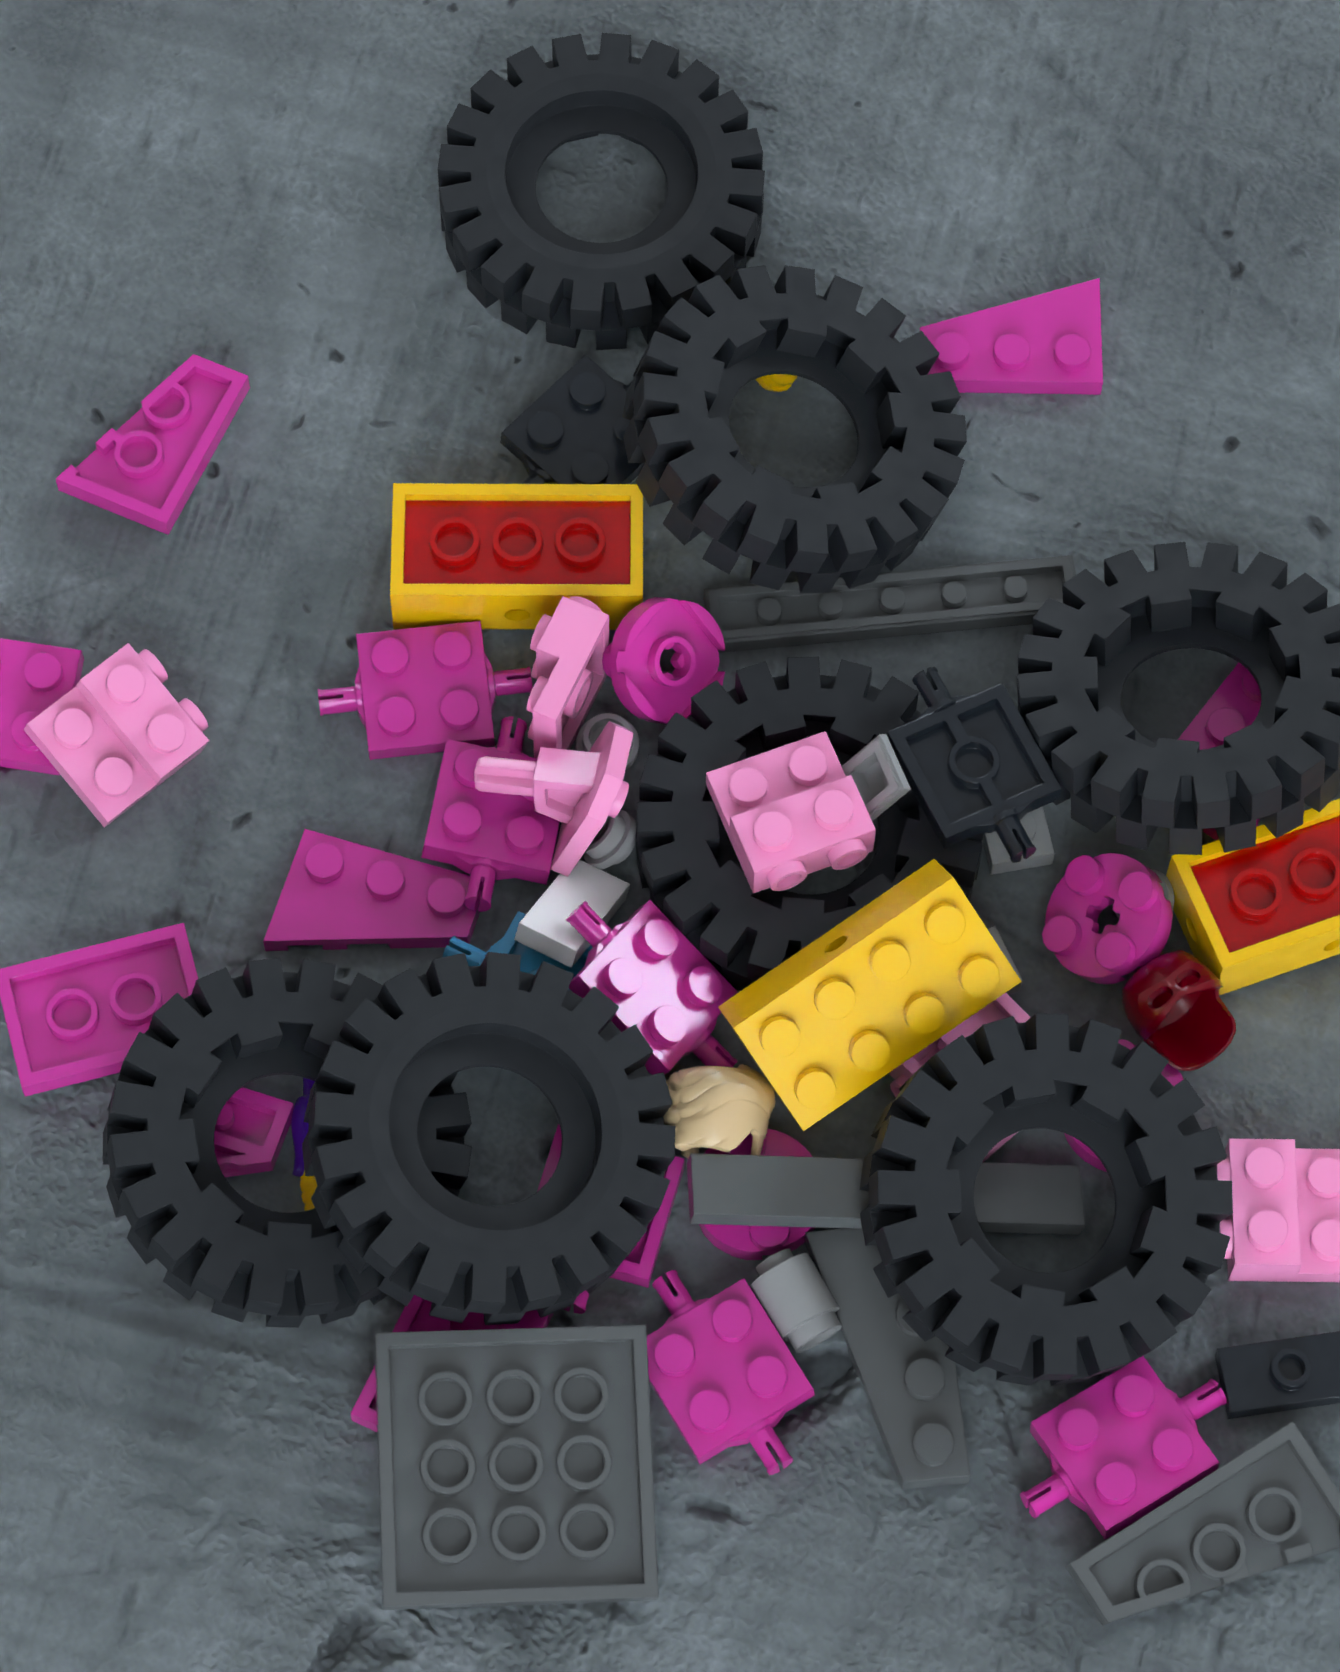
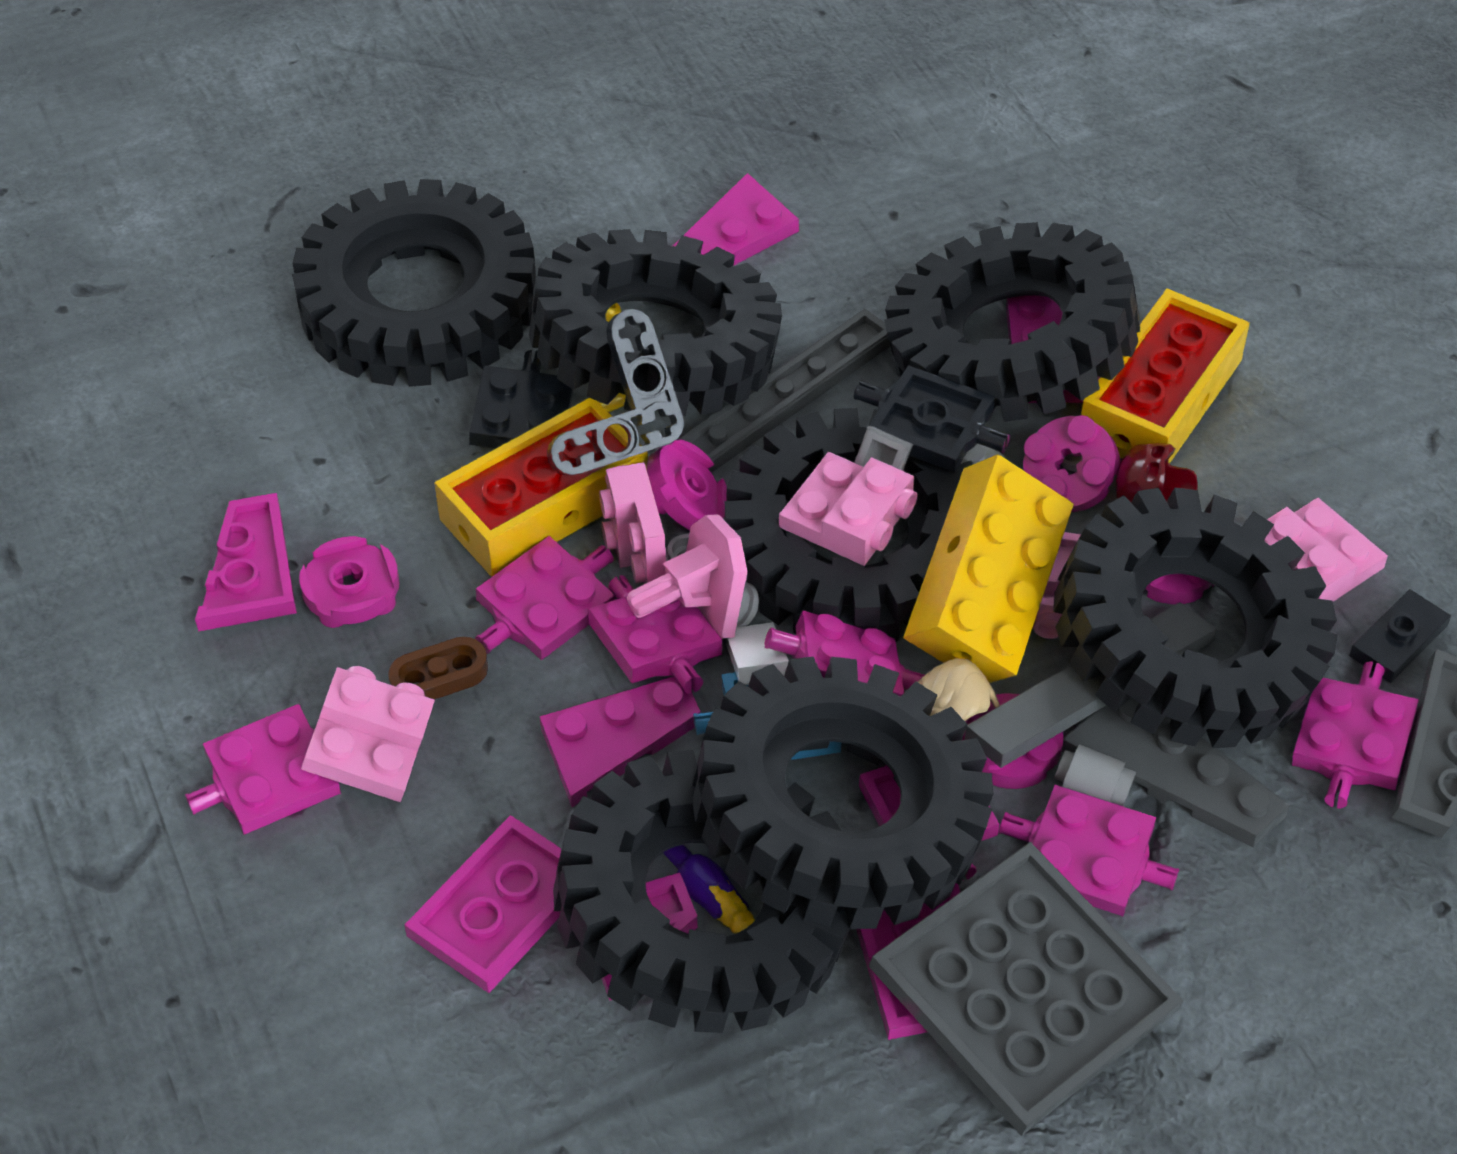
camera: 35 degrees left, 15 degrees down
(252, 702) = (437, 667): none -> reddish brown plate
(253, 566) = (352, 603): none -> dark pink plate
(660, 542) = (640, 402): none -> beam

